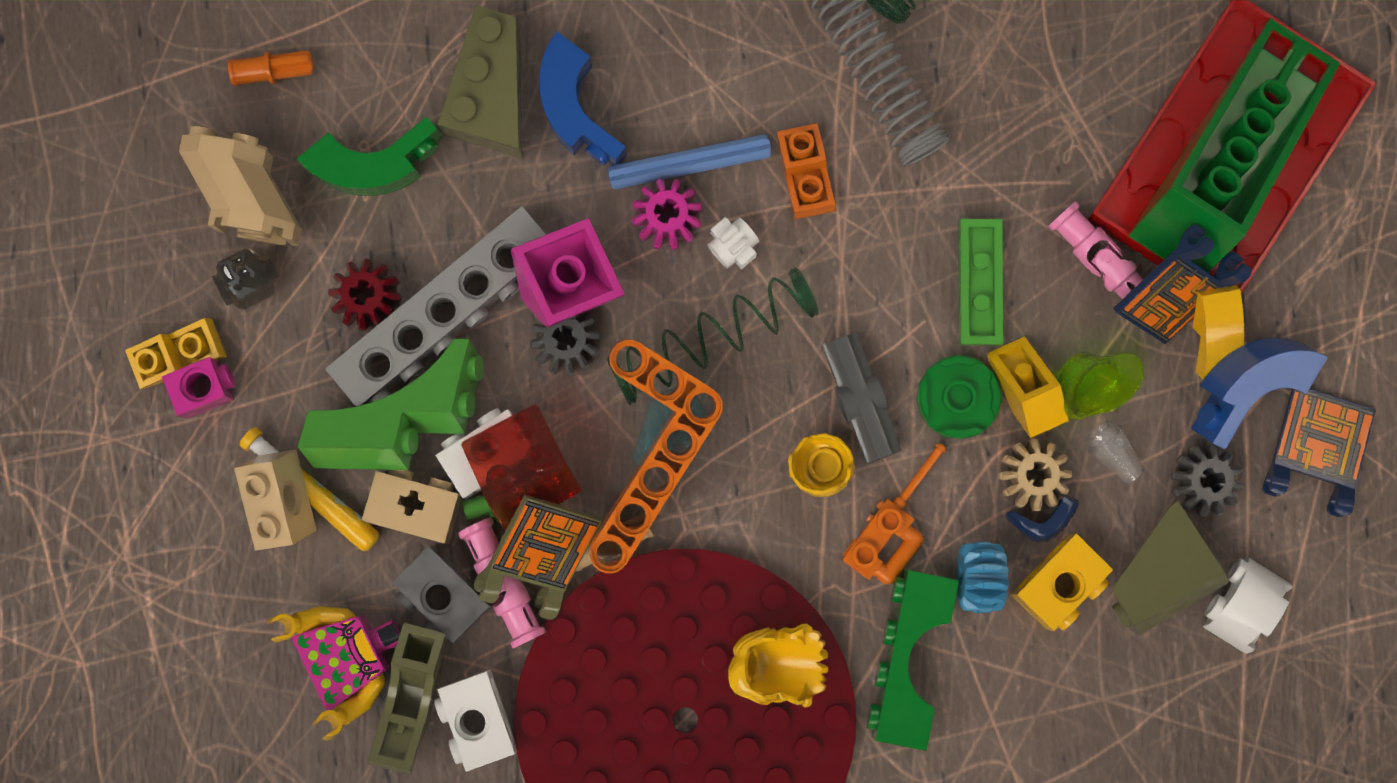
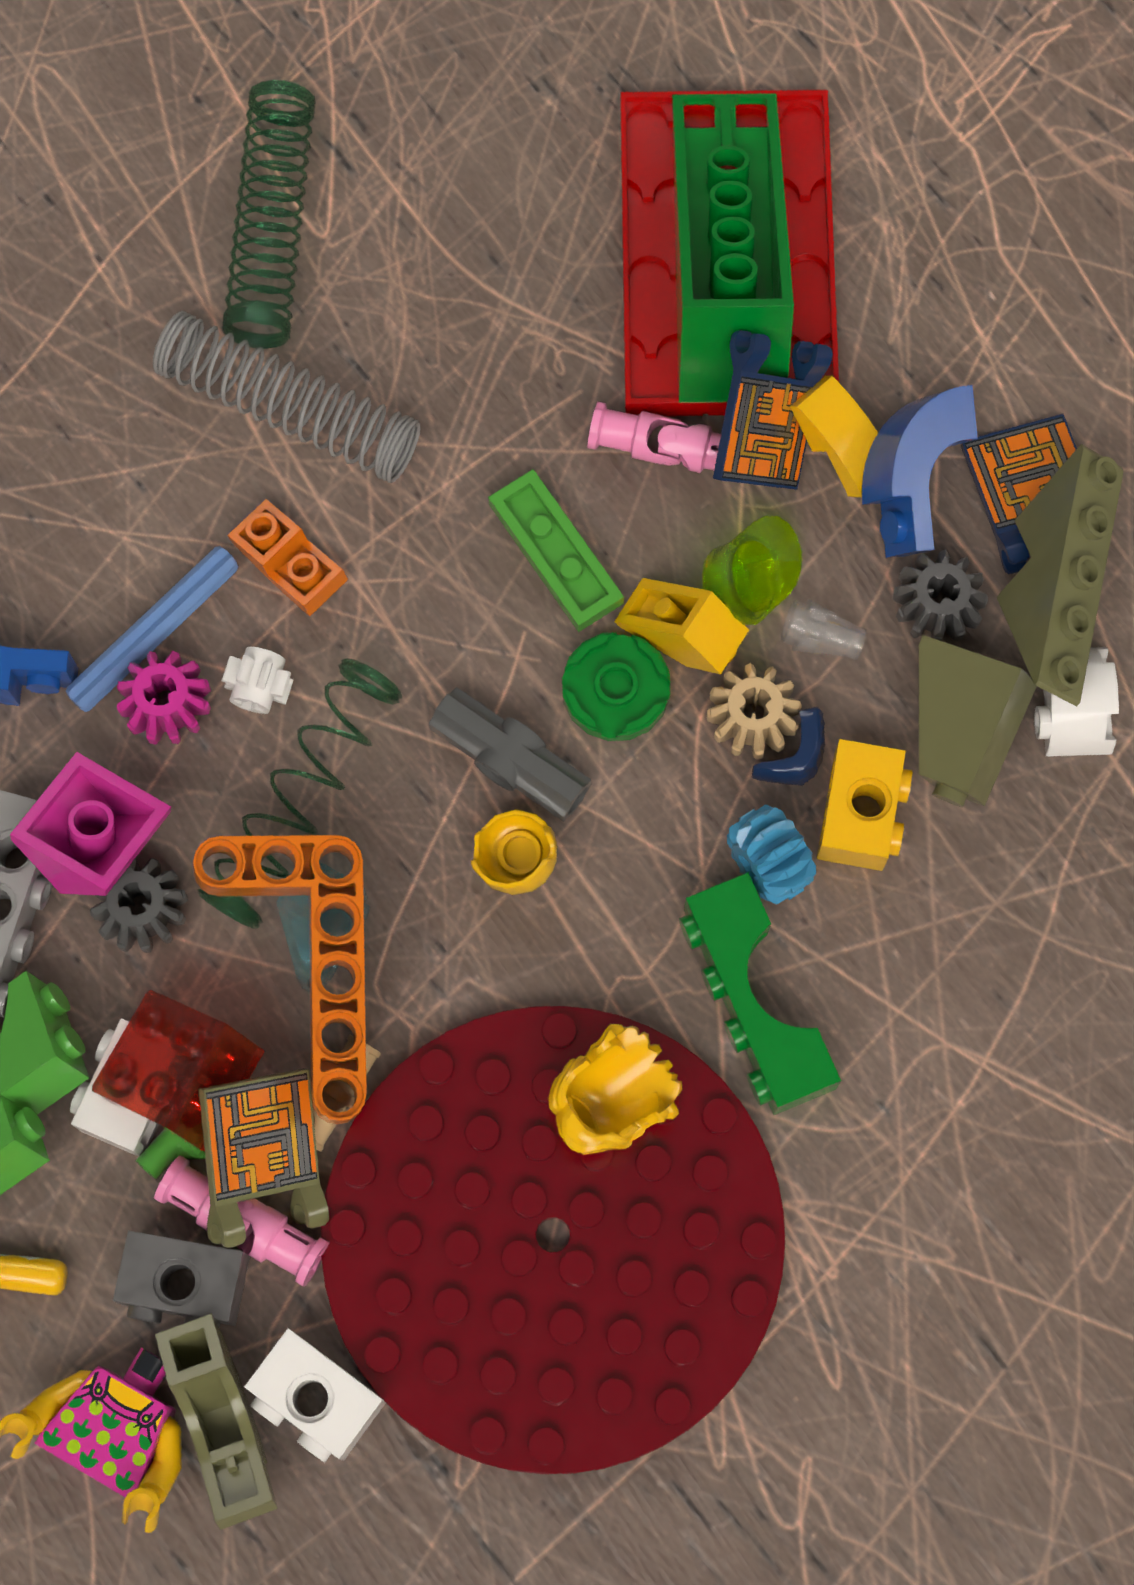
camera: 30 degrees left, 10 degrees down
(387, 507) = (57, 1226): tan brick -> none
(889, 520) = (630, 865): orange piece -> none
(1285, 533) = (1058, 591): none -> olive slope

